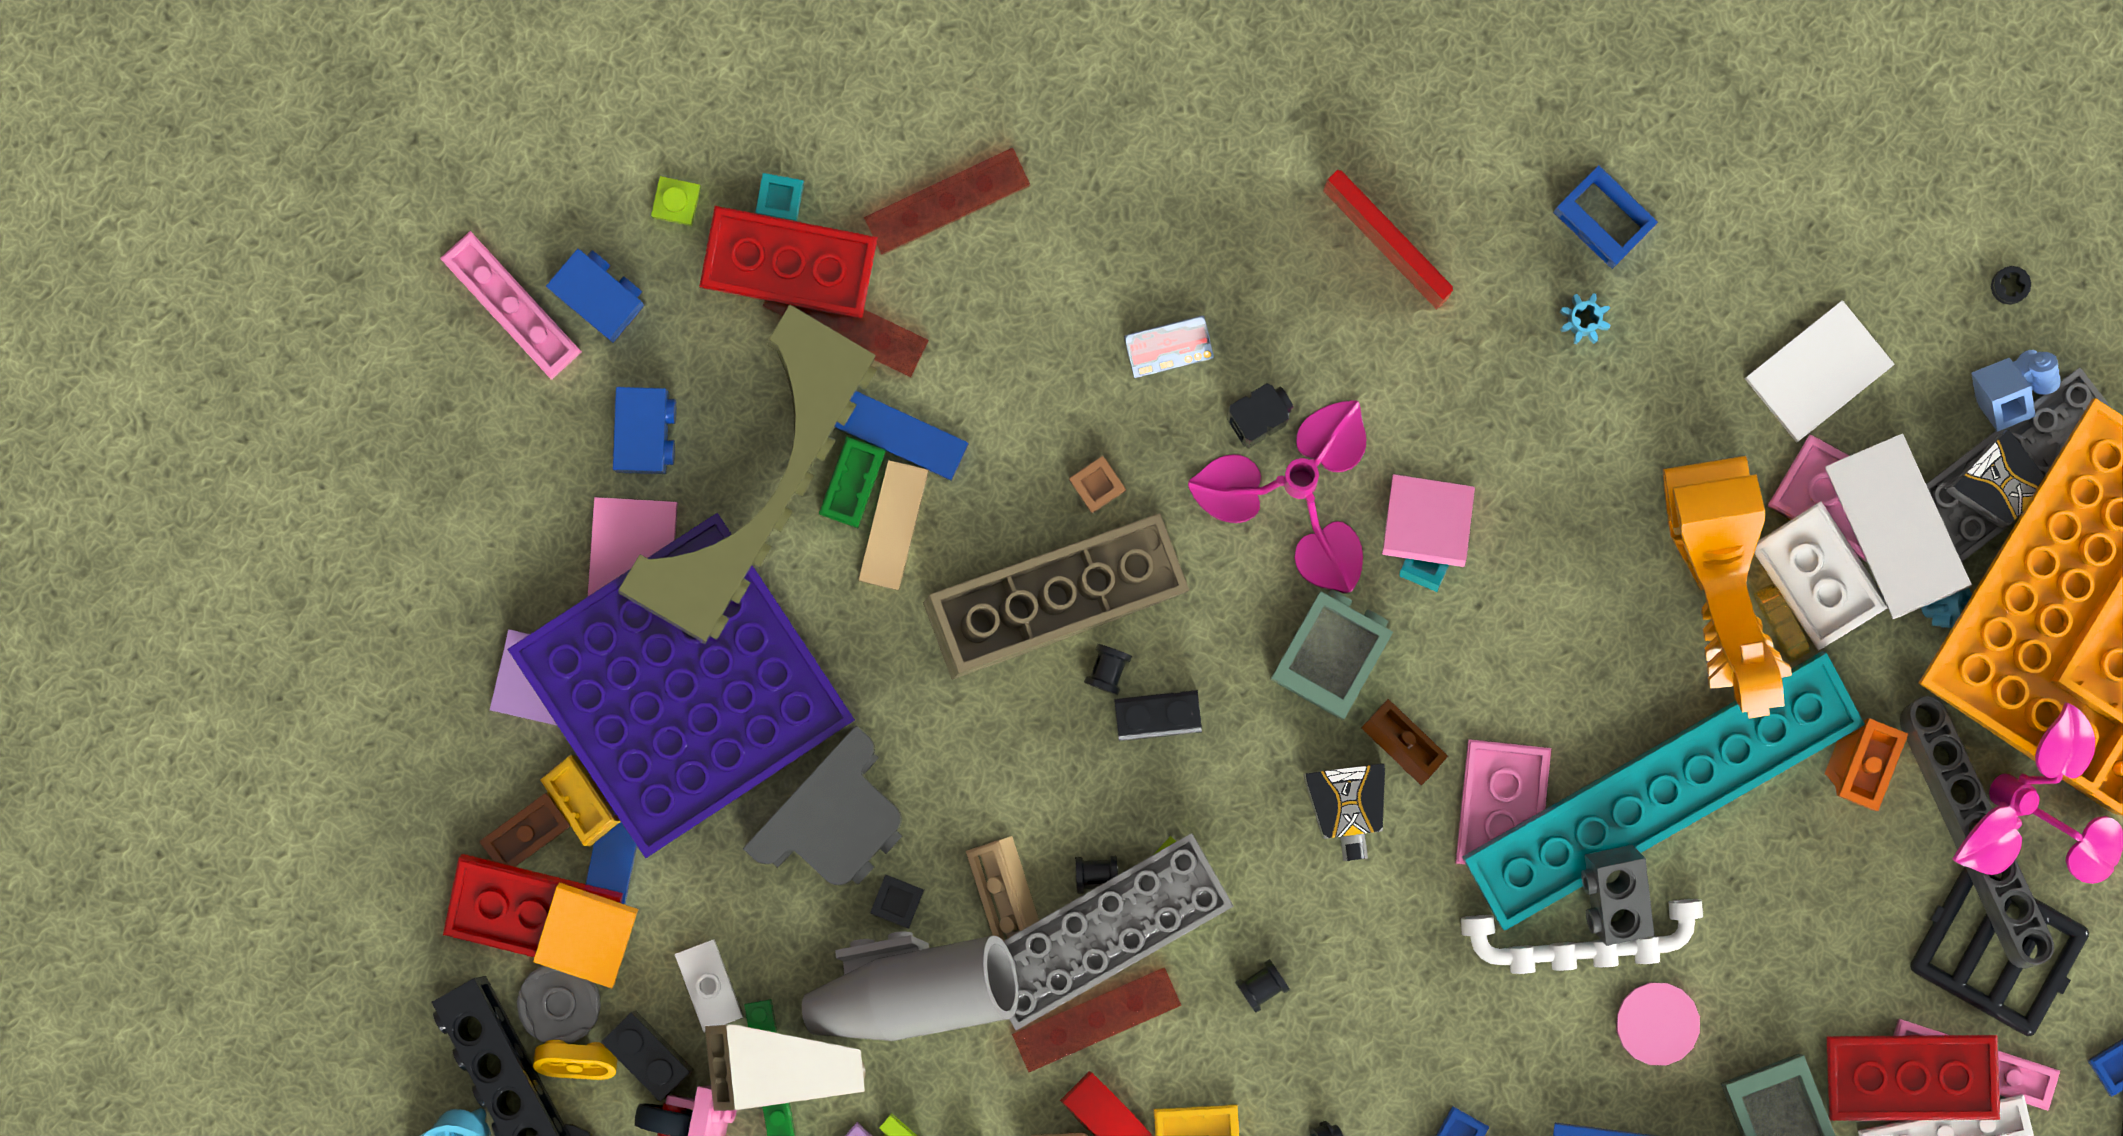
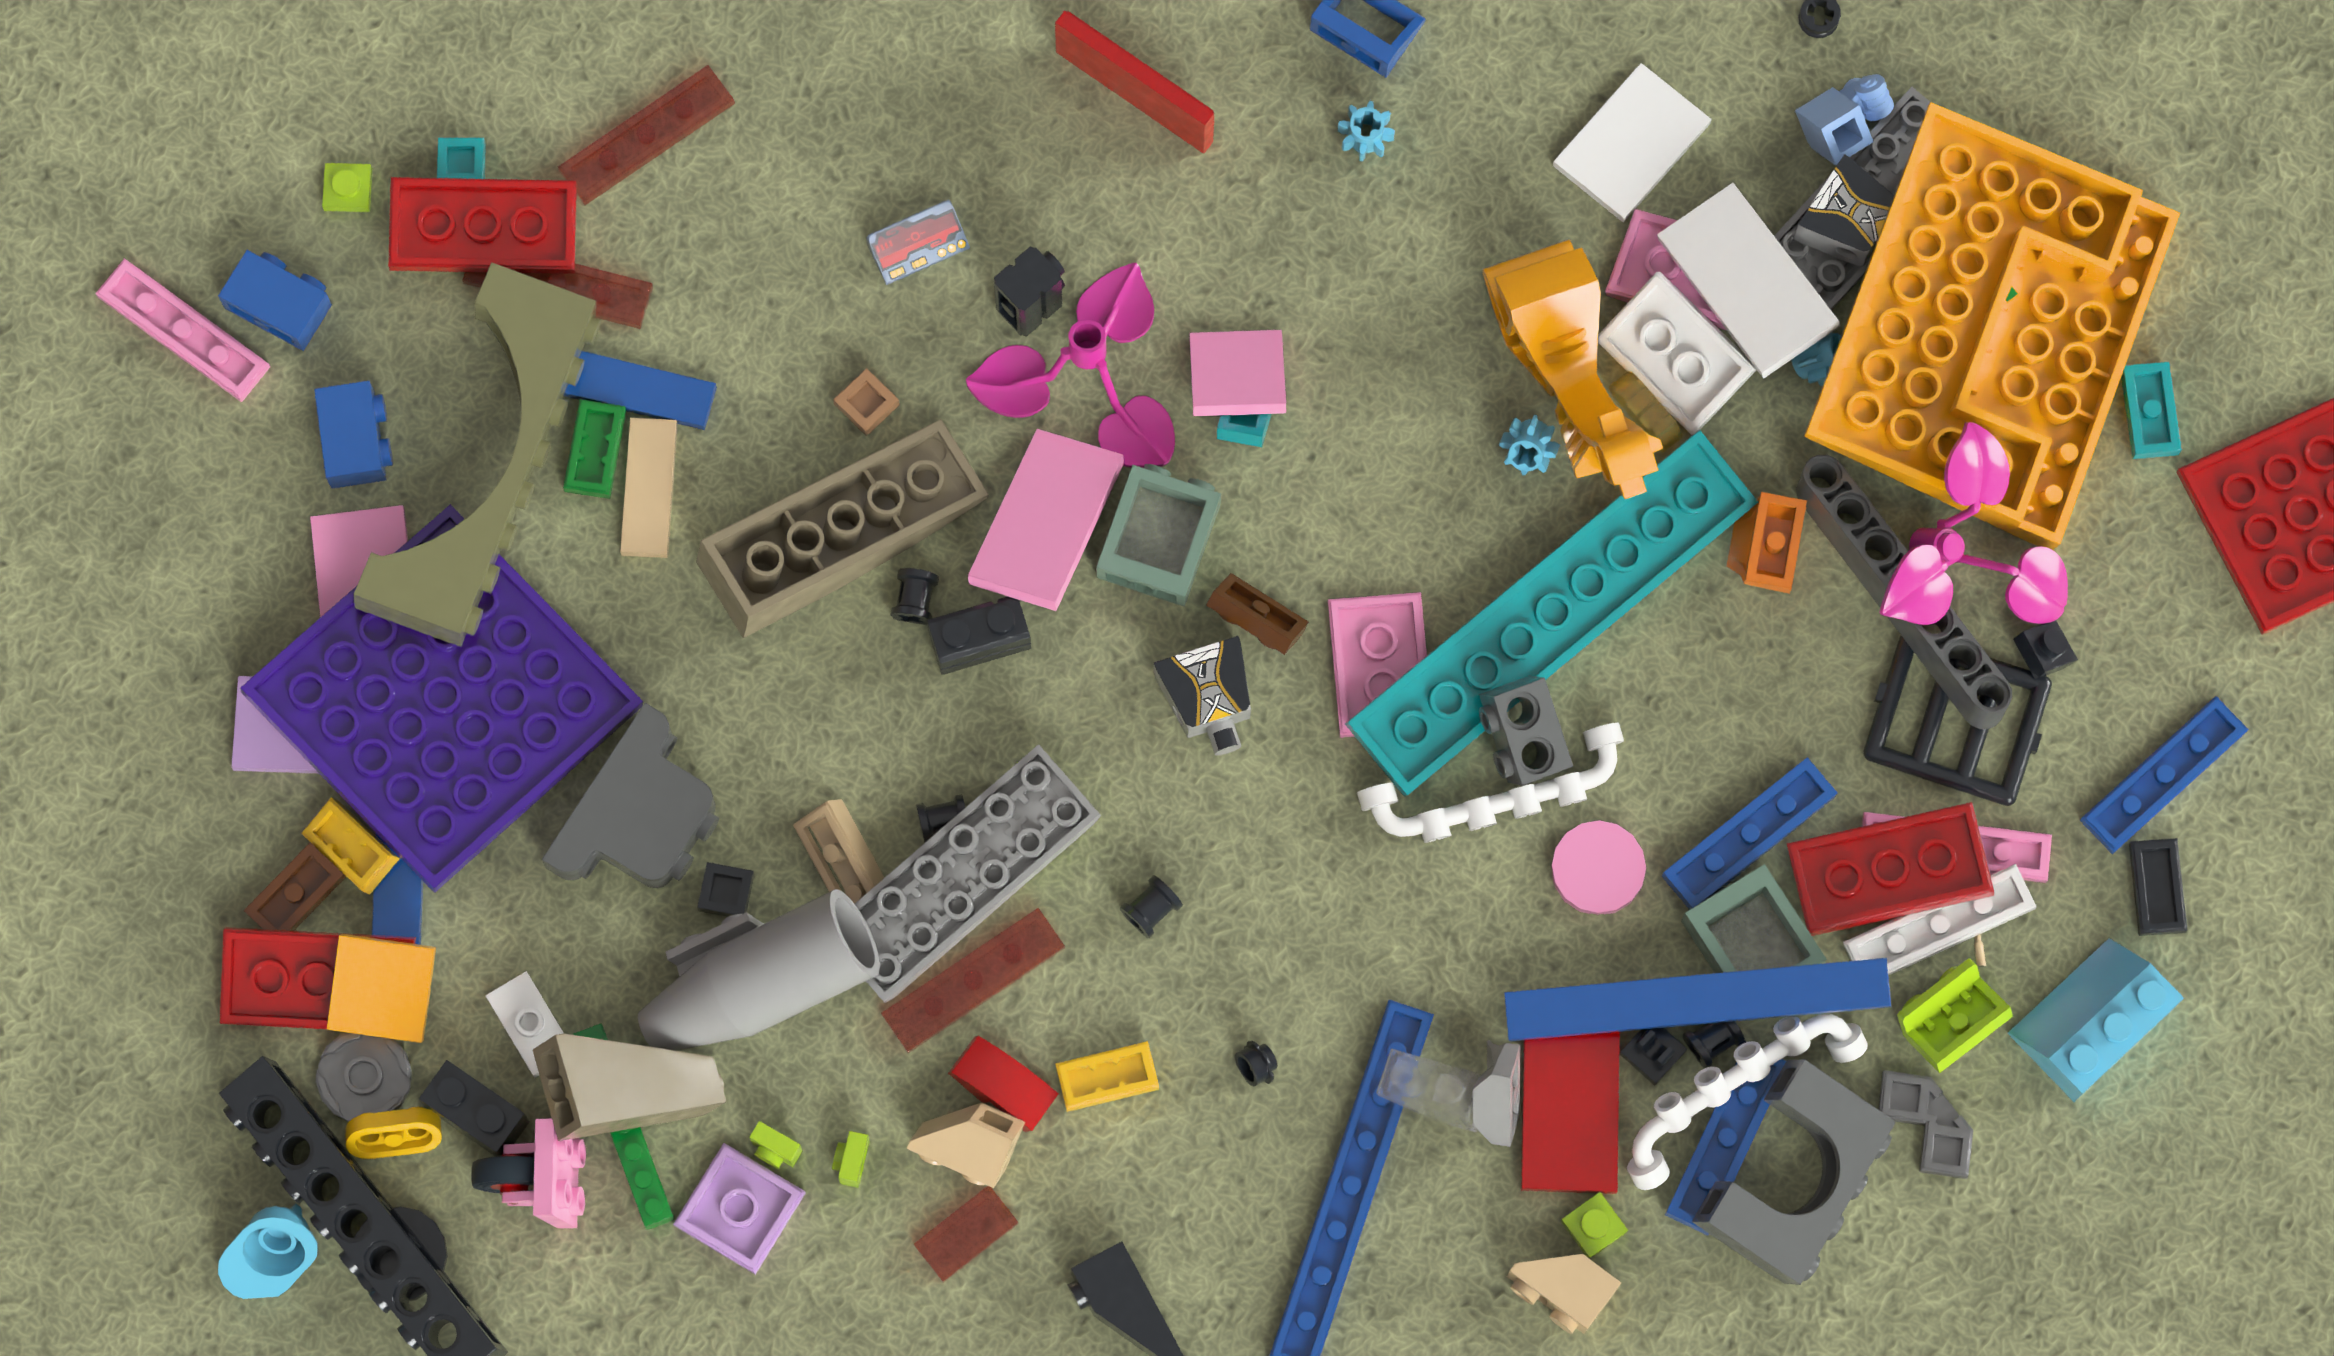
camera: 20 degrees left, 10 degrees down
(1235, 625) = (1046, 519): none -> bright pink tile
(1673, 635) = (1529, 445): none -> medium azure gear
(1796, 1020) = (1749, 834): none -> blue plate
(2090, 905) = (2045, 649): none -> black plate

